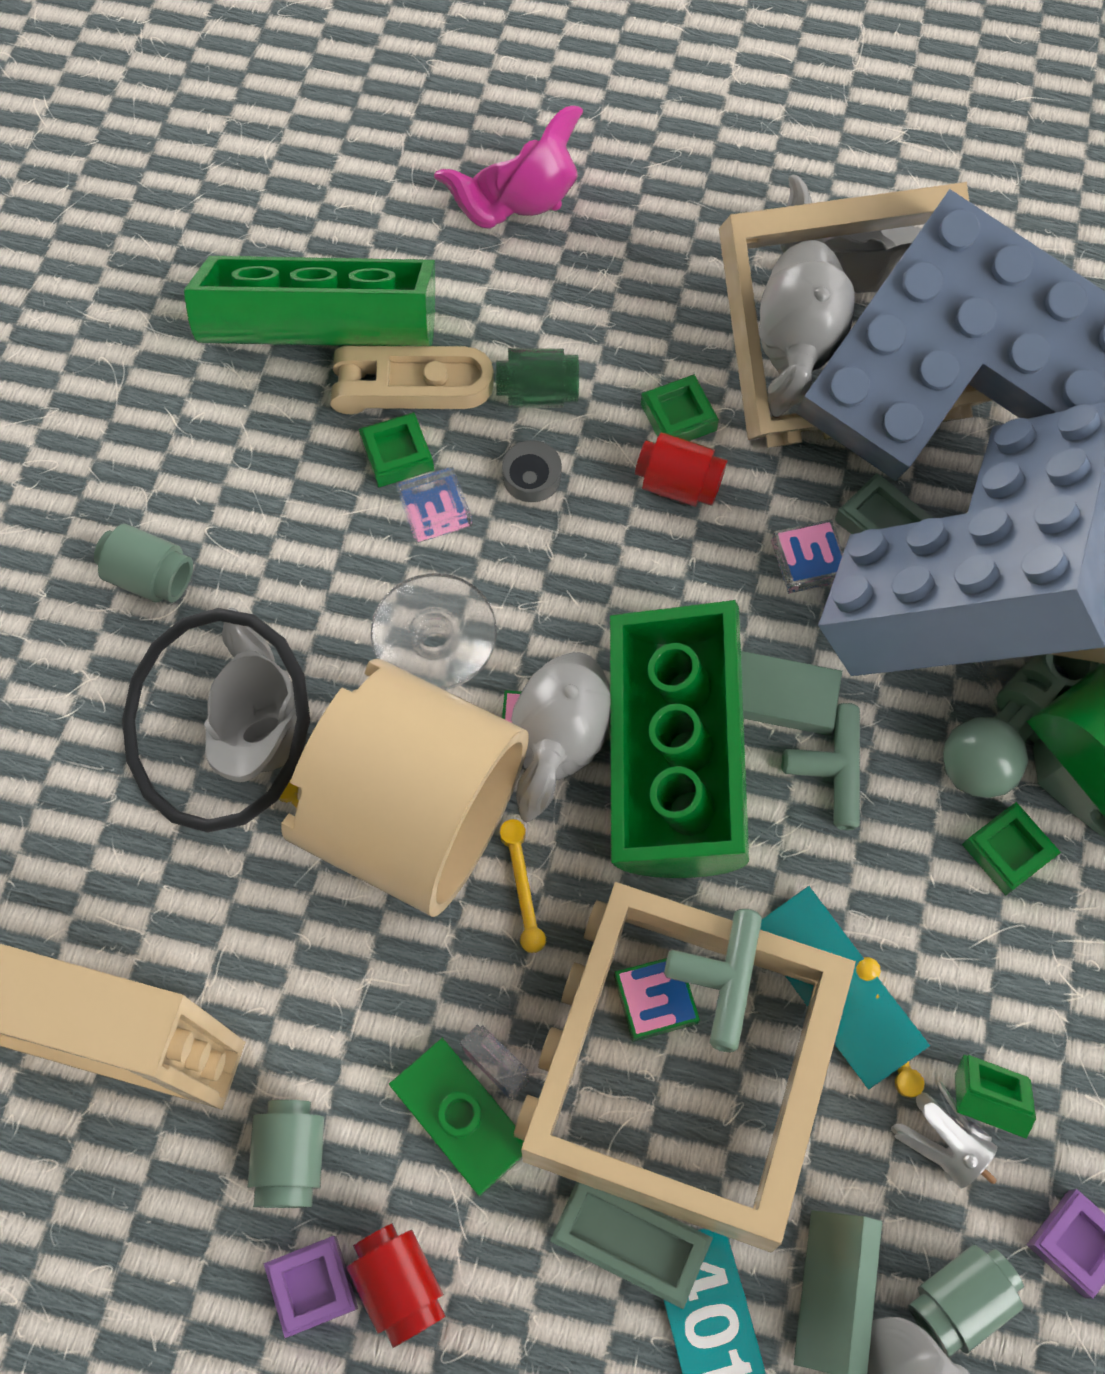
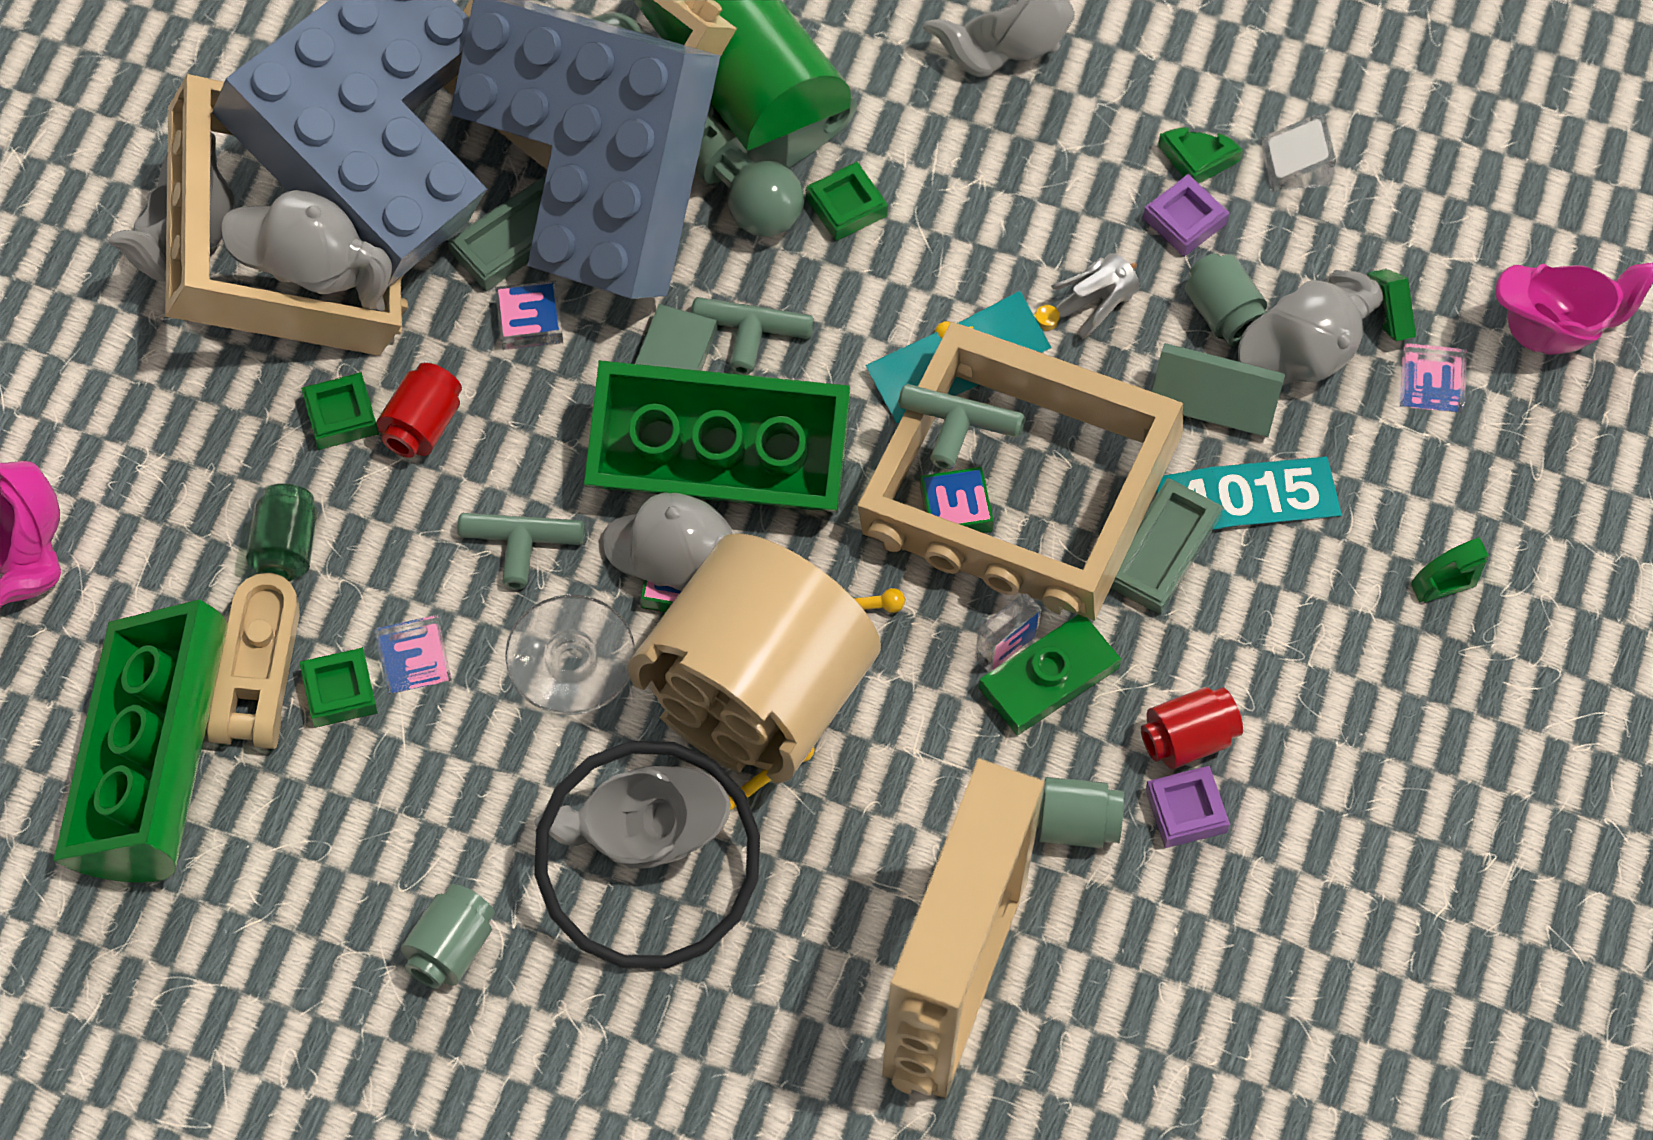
camera: 85 degrees left, 5 degrees down
(532, 471) = (389, 556): dark grey tile -> none
(569, 578) = (520, 534): none -> sand green piece
(994, 1096) = (1066, 249): green tile -> none

